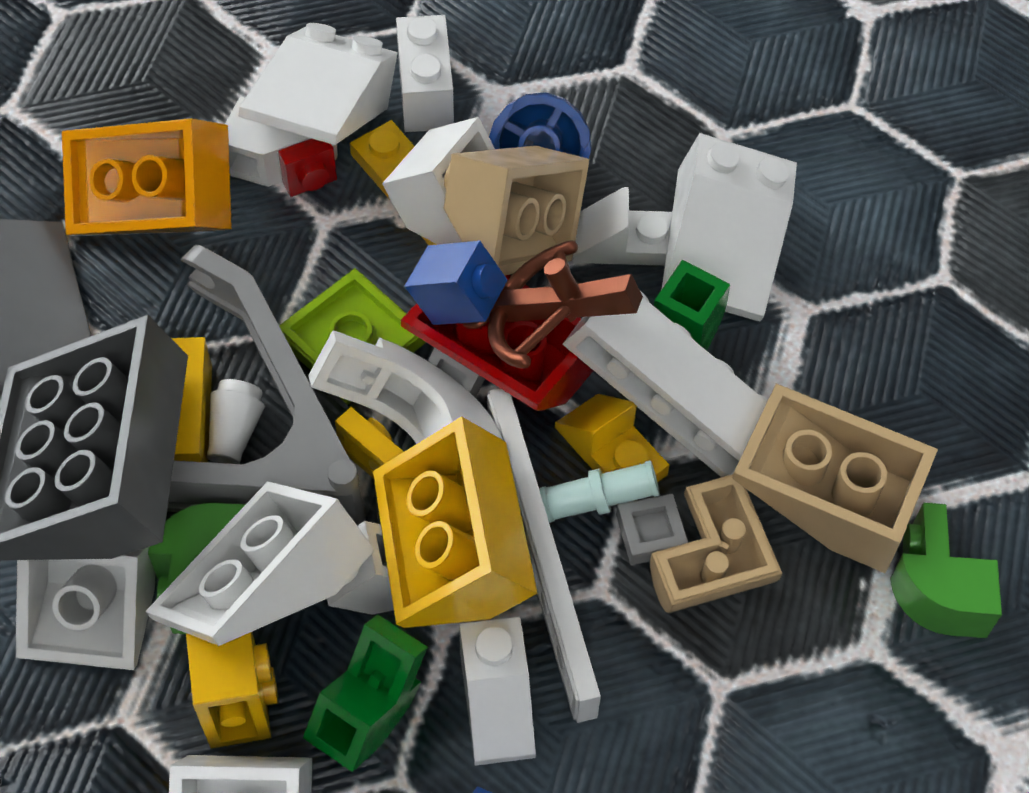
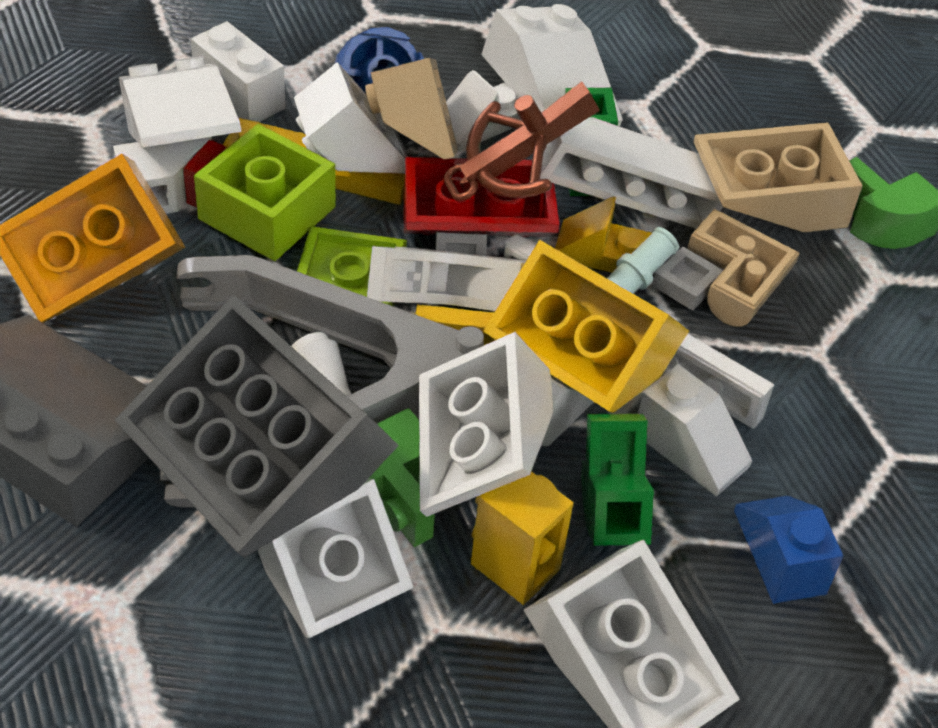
camera: 40 degrees left, 10 degrees down
(333, 213) = (265, 191): none -> lime brick
(456, 283) = (440, 165): blue brick -> none

